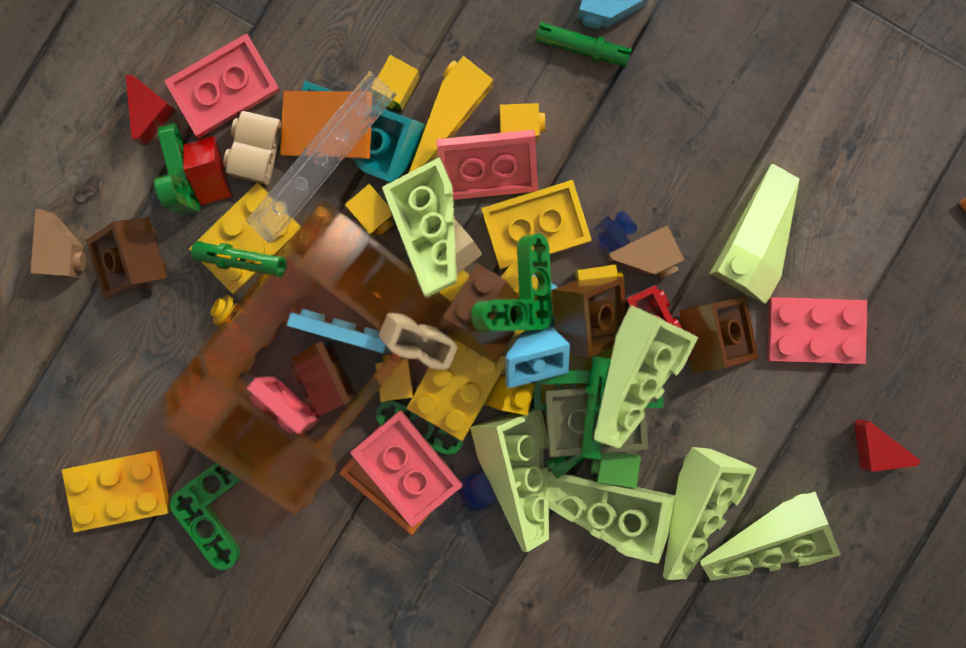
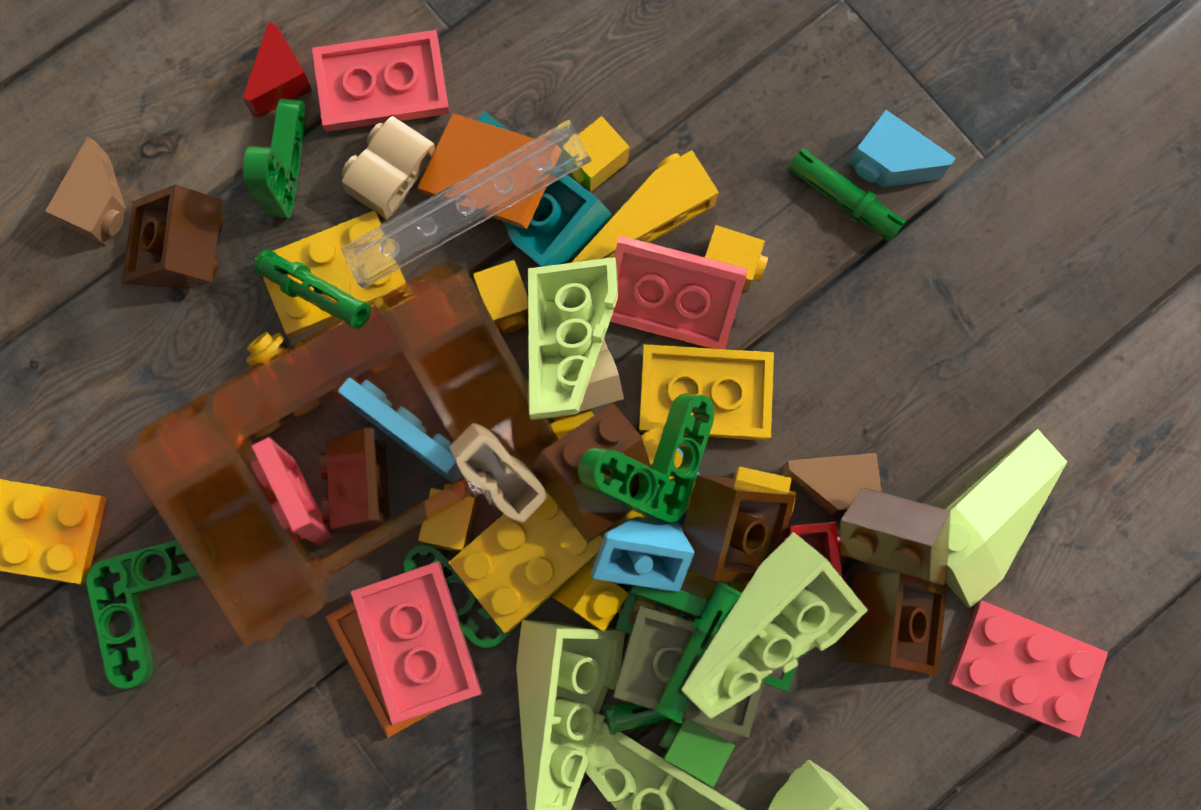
camera: 10 degrees right, 10 degrees down
(206, 171) = (317, 174): red slope -> none
(477, 492) = (497, 712): clear blue piece -> none
(613, 233) = (802, 439): clear blue piece -> none
(700, 279) = (897, 535): none -> slope

